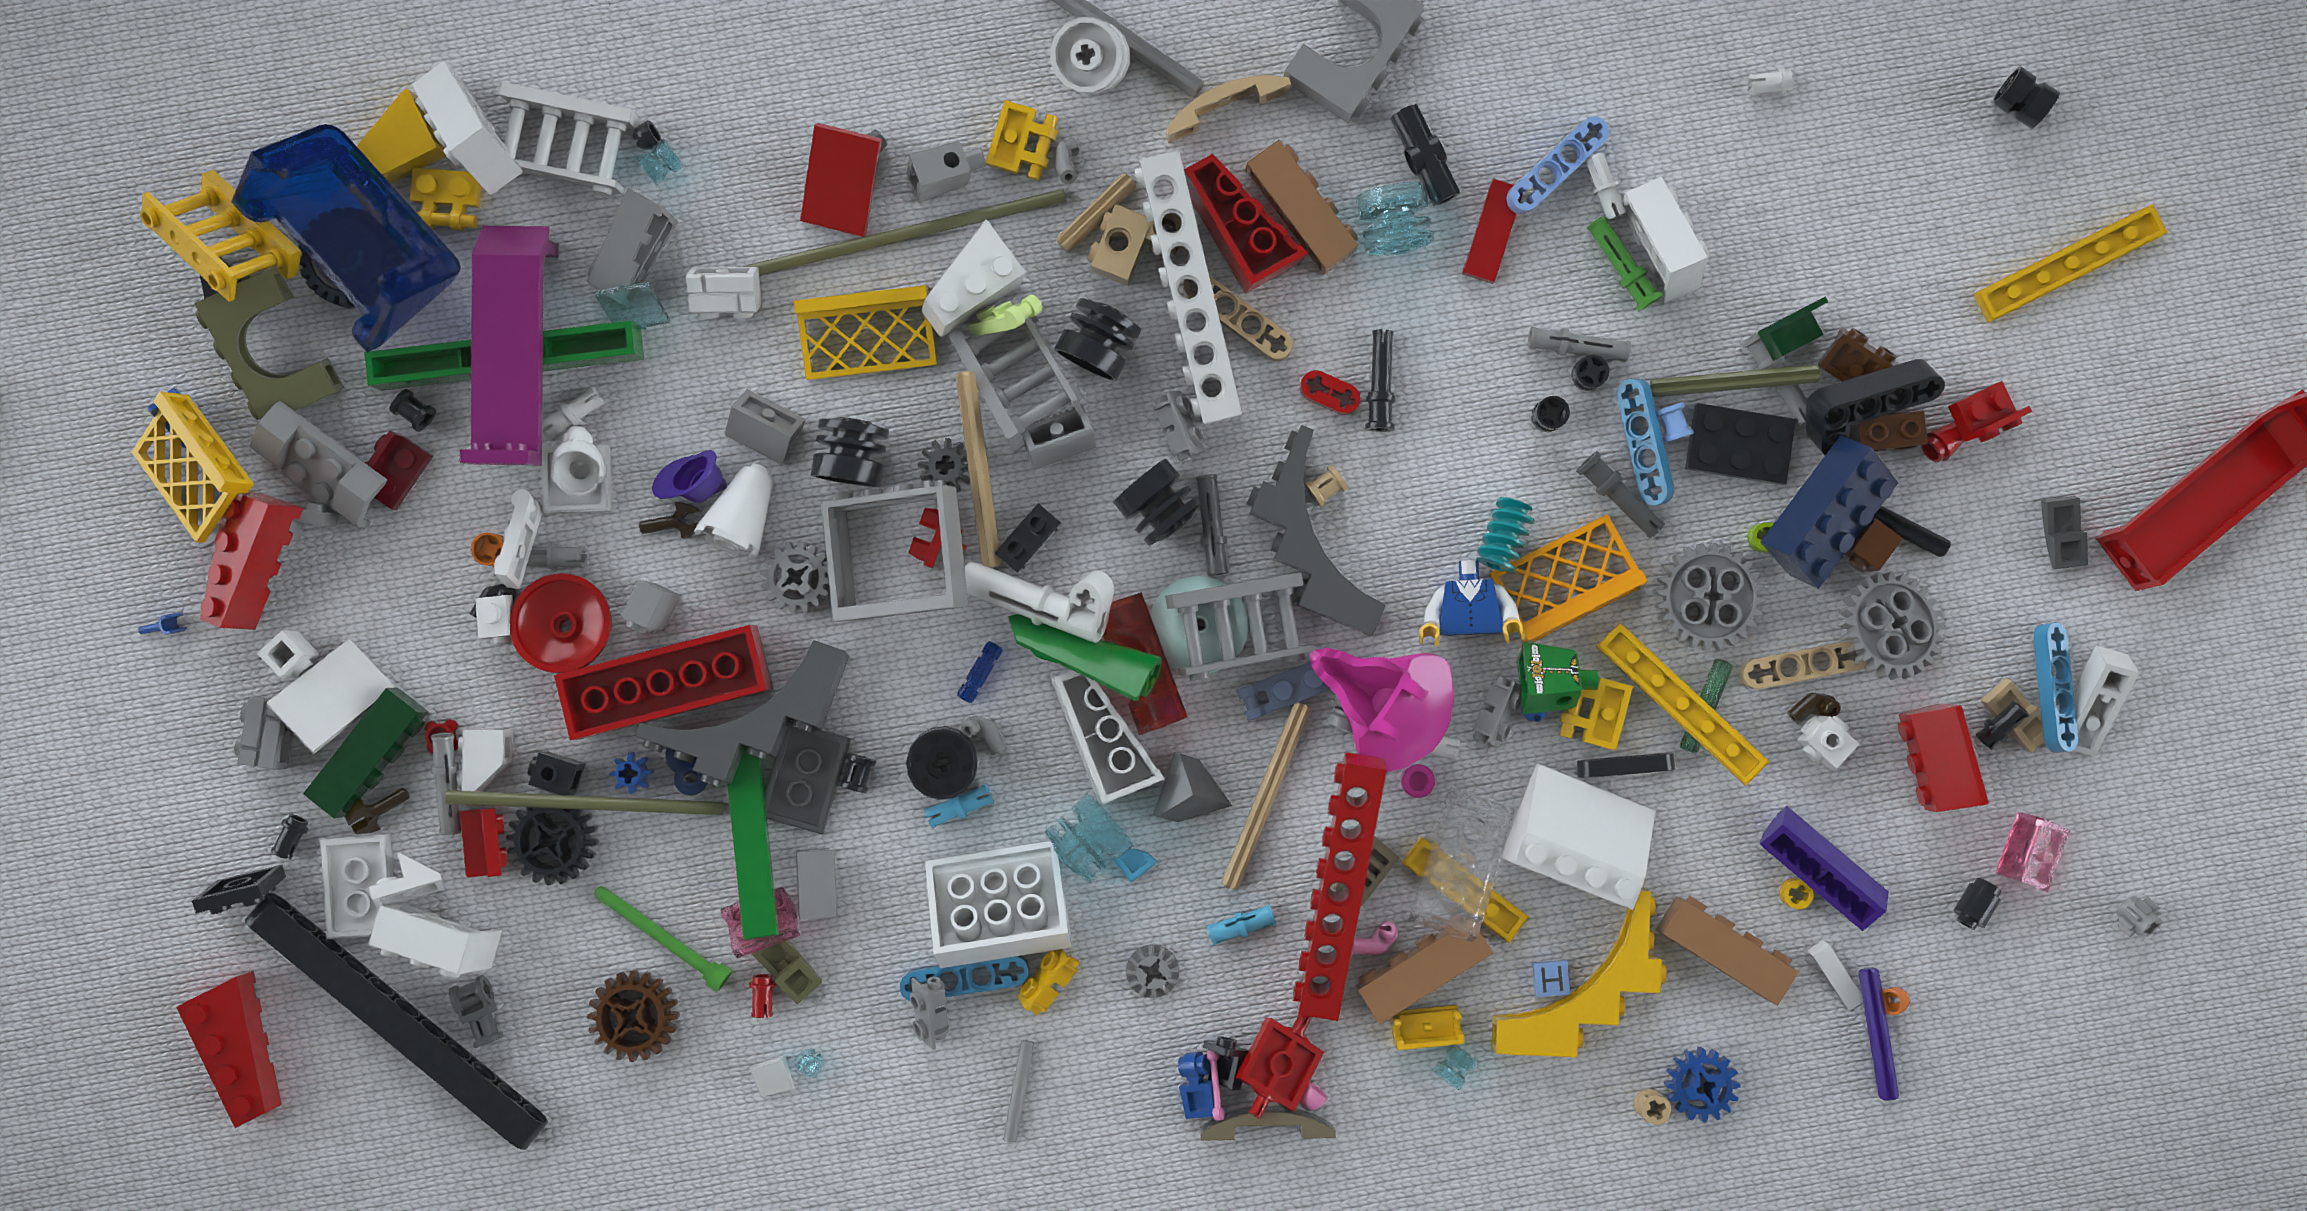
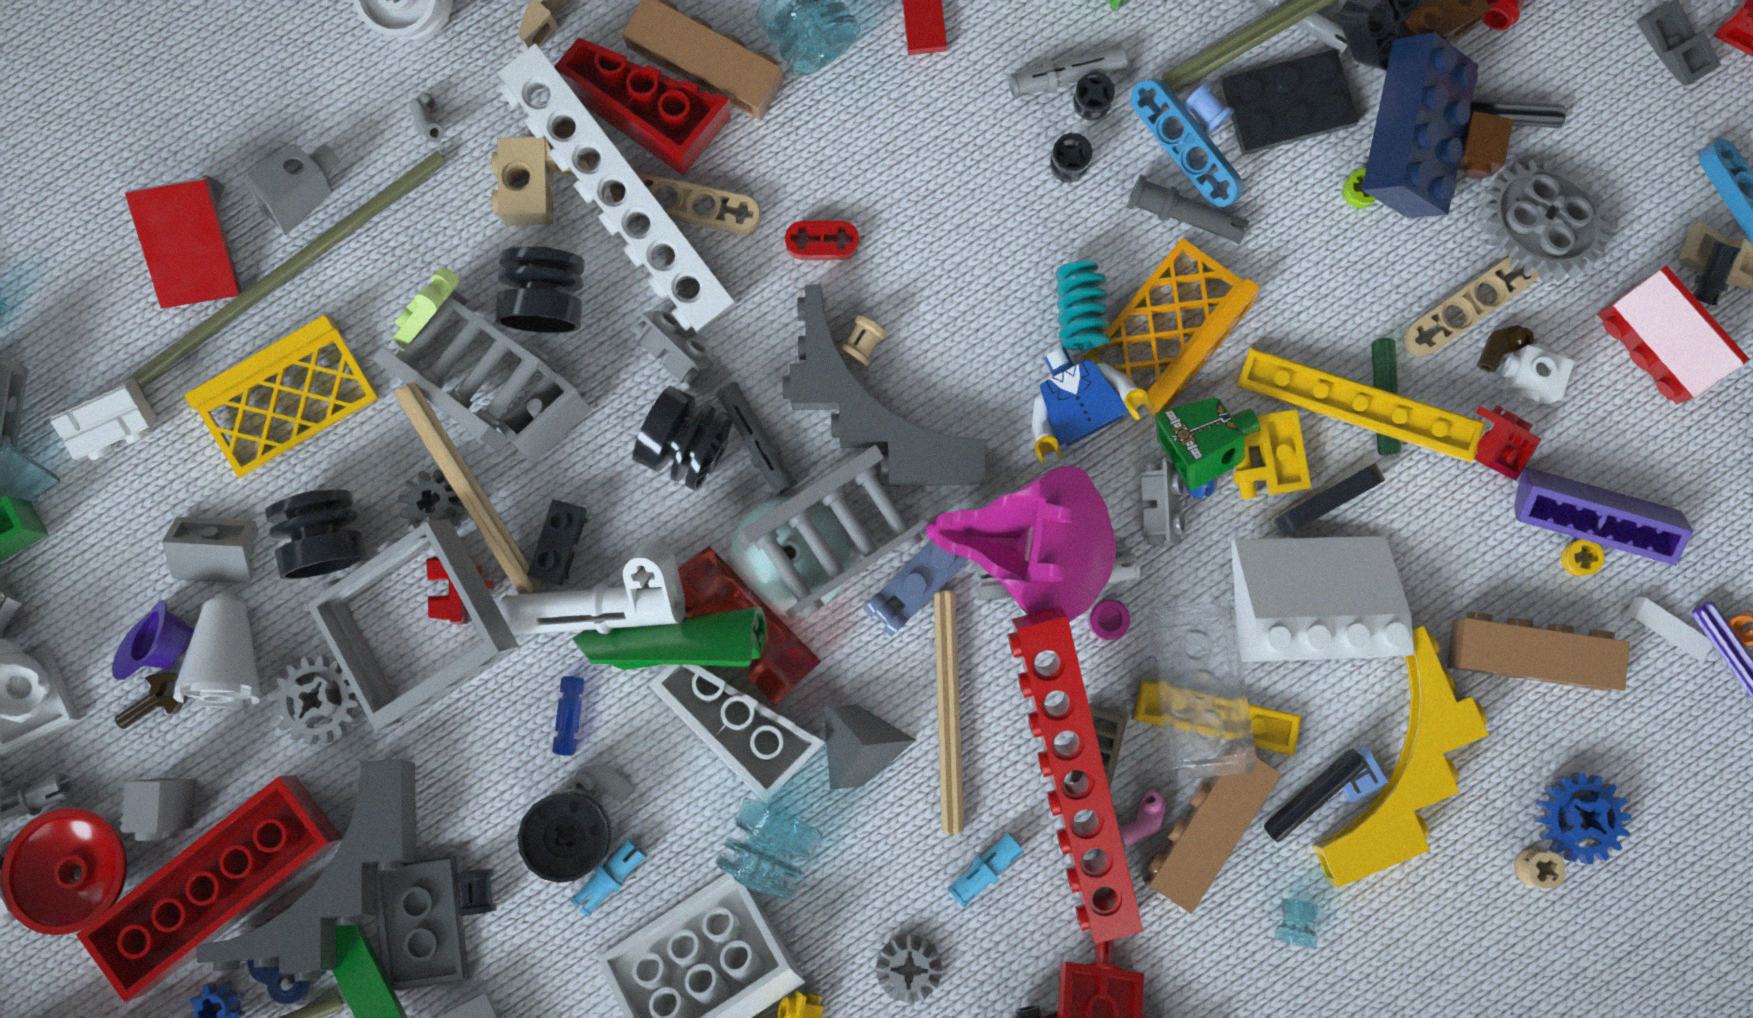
camera: 20 degrees left, 5 degrees down
(973, 281) = (375, 289): white wedge -> none
(1012, 136) = (357, 122): yellow plate -> none
(1095, 212) = (480, 163): tan axle -> none
(1135, 863) = (835, 853): medium azure tile -> none
(1381, 397) = (879, 220): black pin -> none
(1427, 1027) = (1246, 892): yellow hinge -> none
(1511, 979) = (1315, 795): none -> black axle
(1679, 593) = (1368, 266): light grey gear -> none
(1779, 784) = (1507, 444): none -> red bracket

